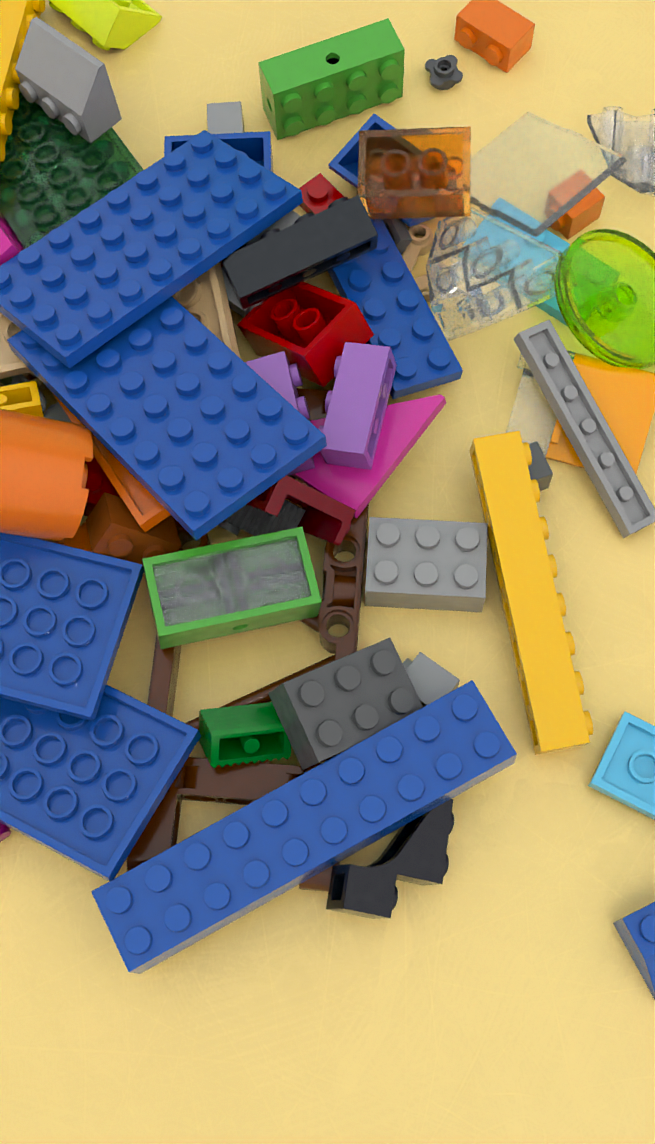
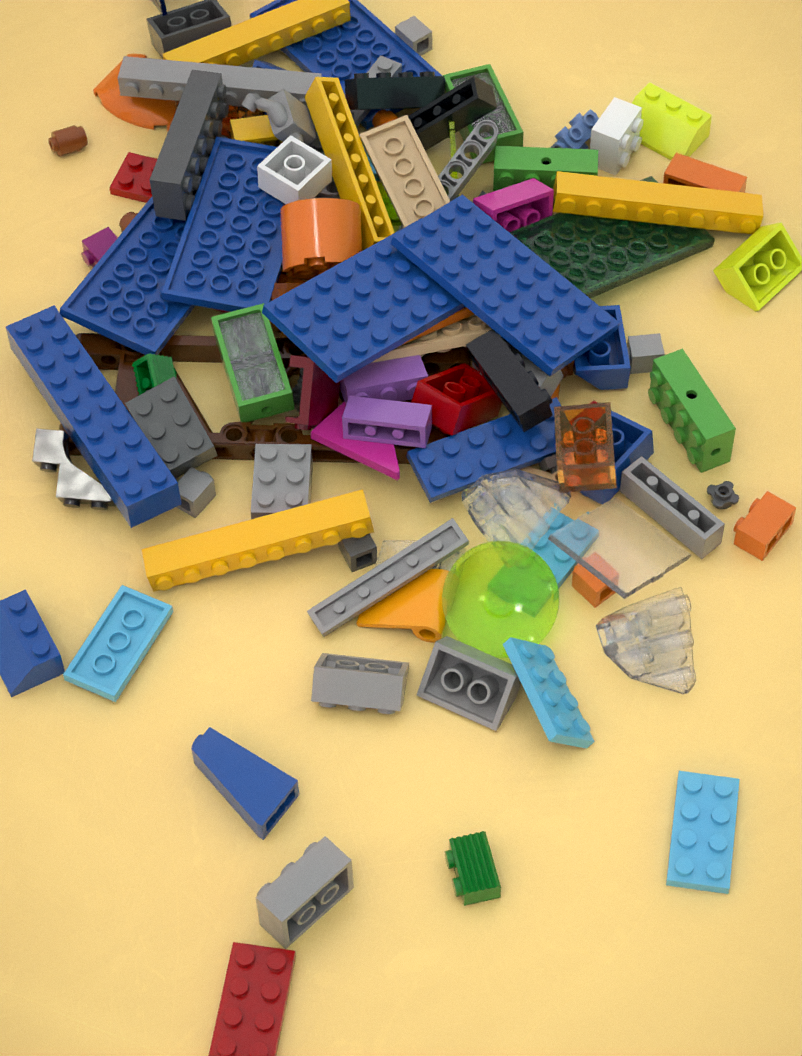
camera: 85 degrees right, 15 degrees down
(66, 82) = (653, 241): light grey slope -> none
(489, 100) = (672, 507): none -> light grey brick

